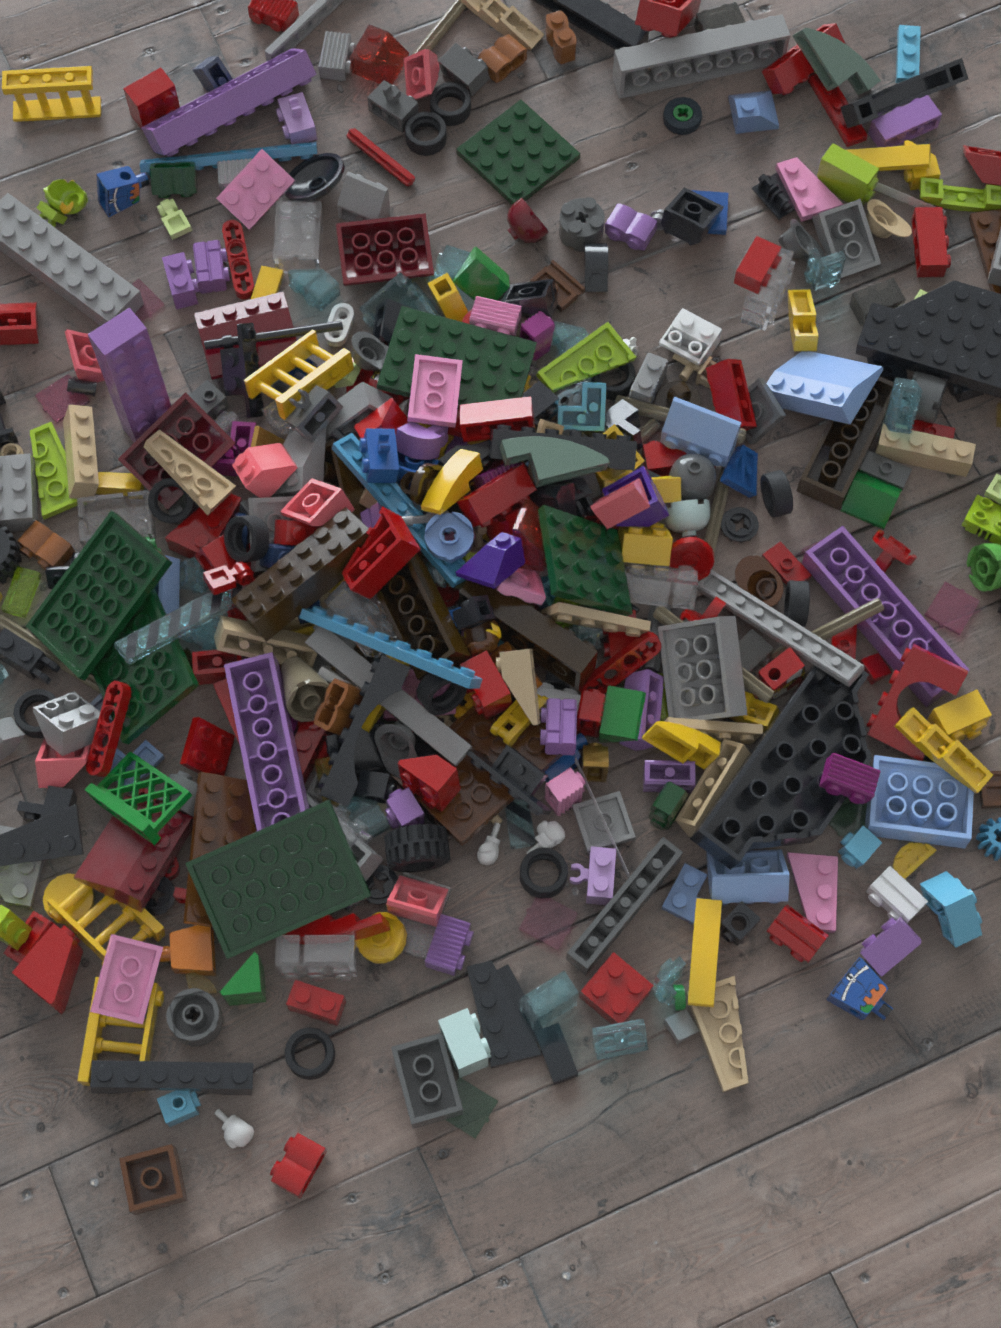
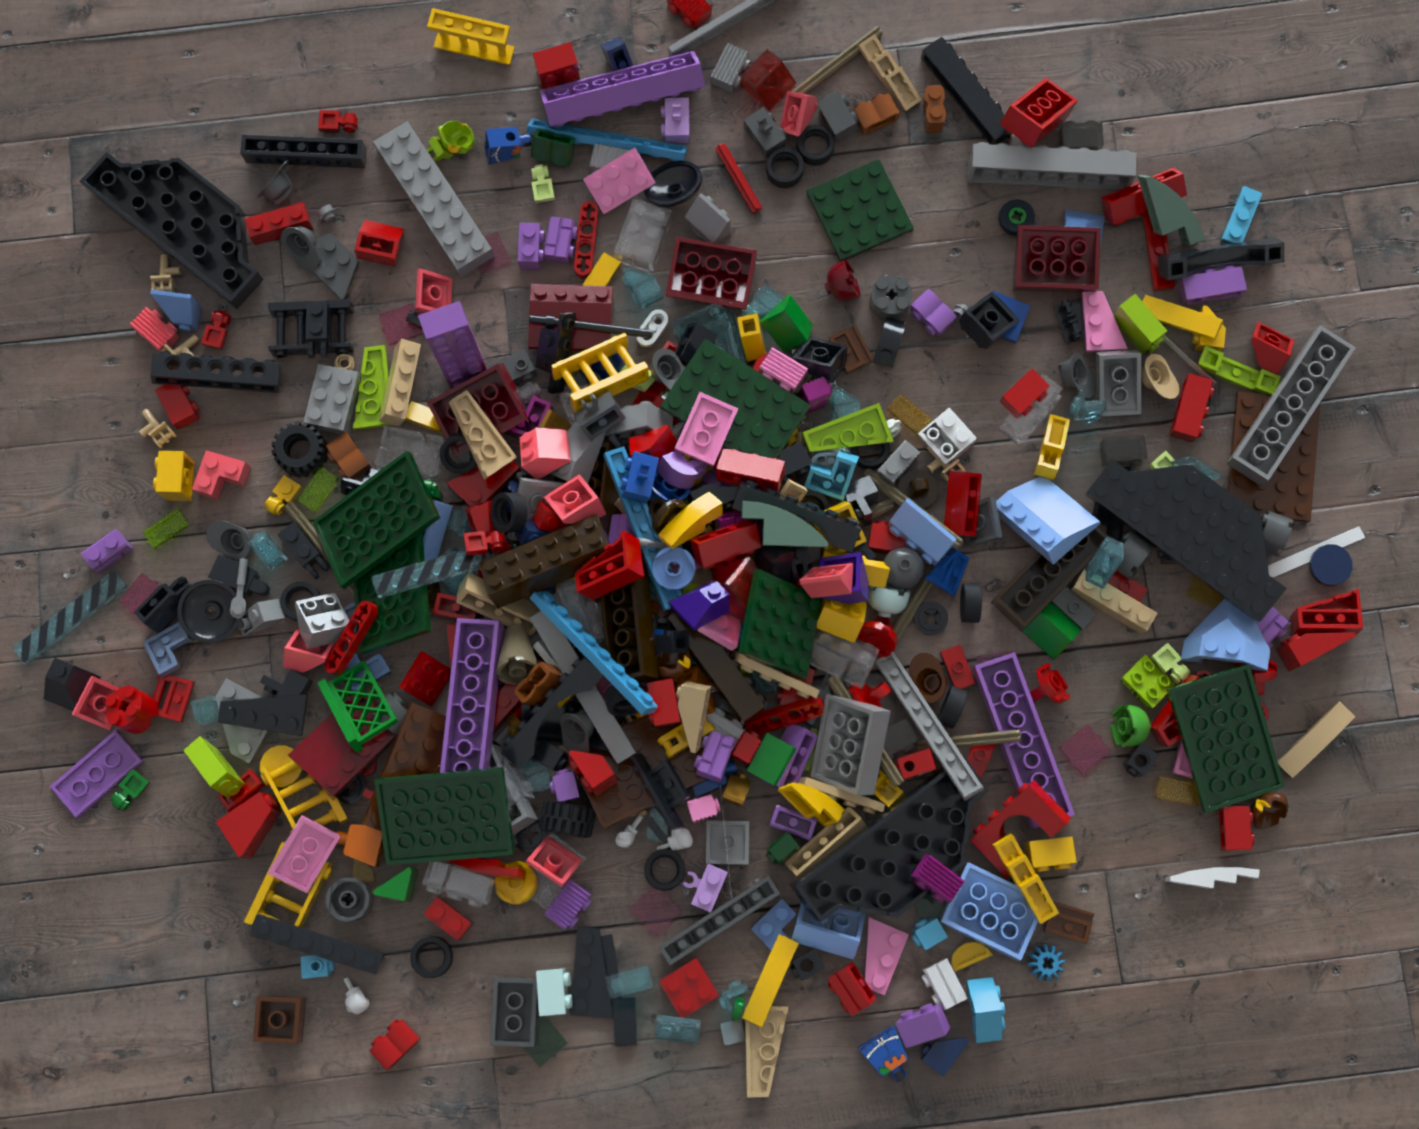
camera: 20 degrees right, 10 degrees up
(645, 332) = (909, 414): none -> clear yellow tile
(739, 138) = (1057, 259): none -> dark red slope
(875, 667) = (999, 781): red slope -> none
(923, 972) = (943, 1053): none -> dark blue slope

